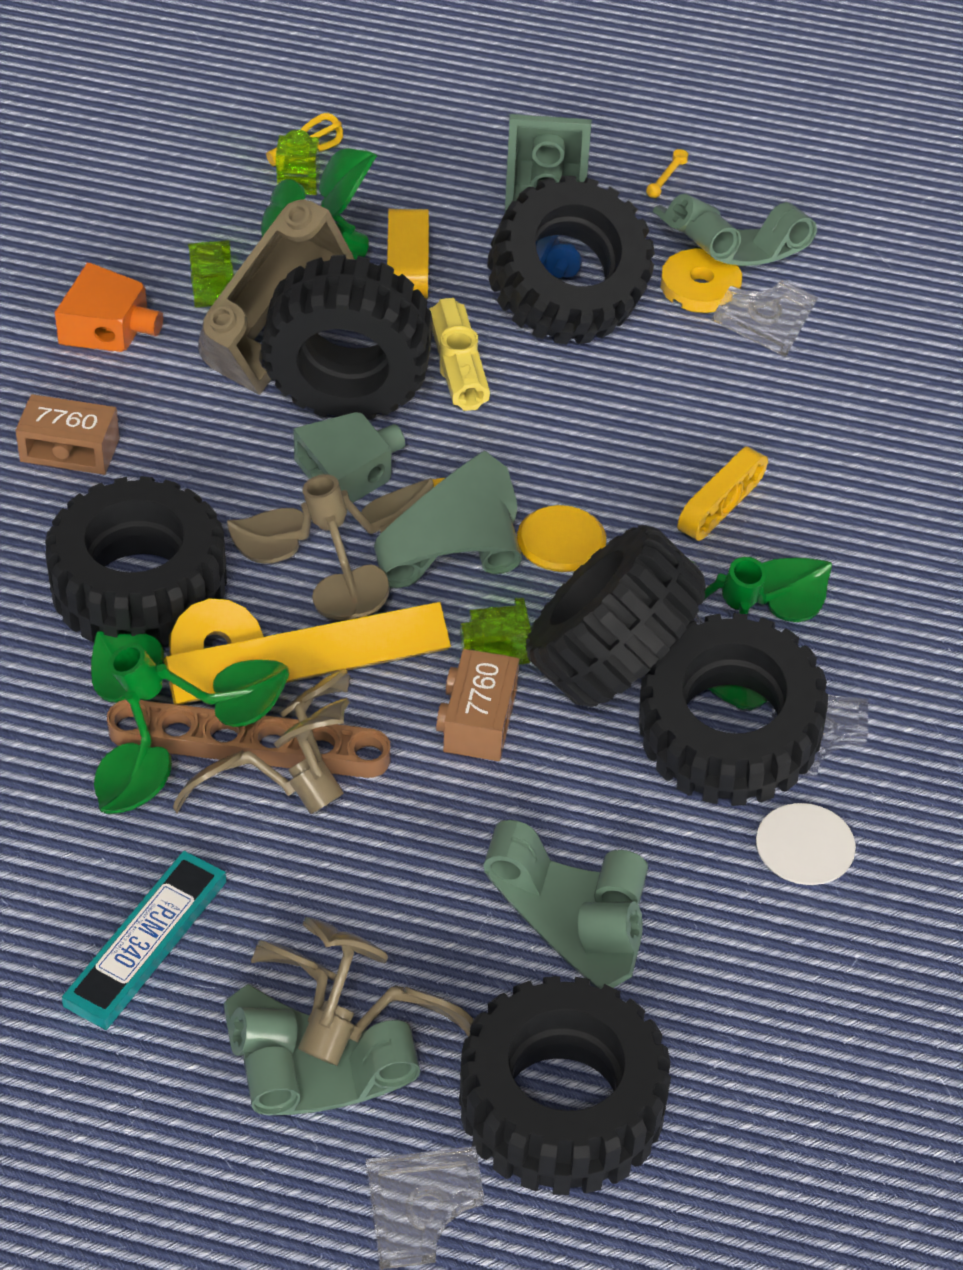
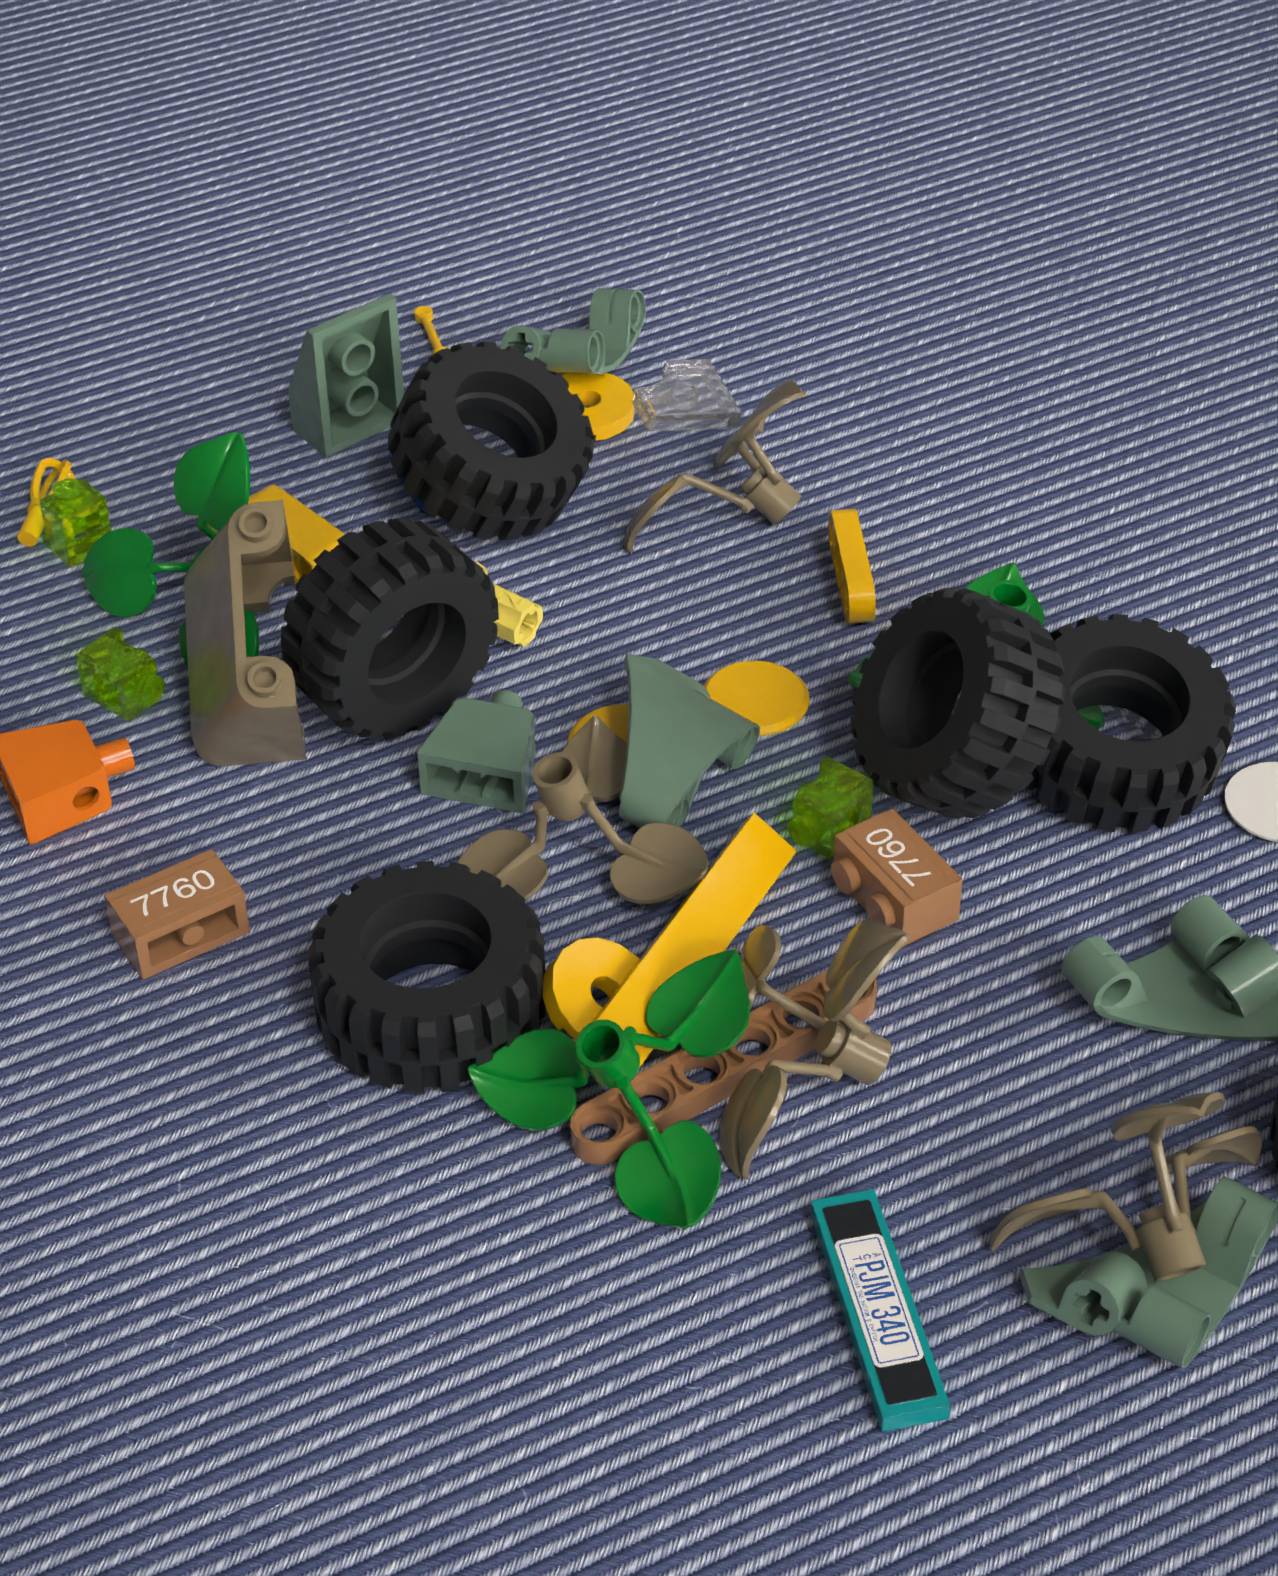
camera: 40 degrees left, 5 degrees down
(730, 402) = (763, 487): none -> dark tan plant

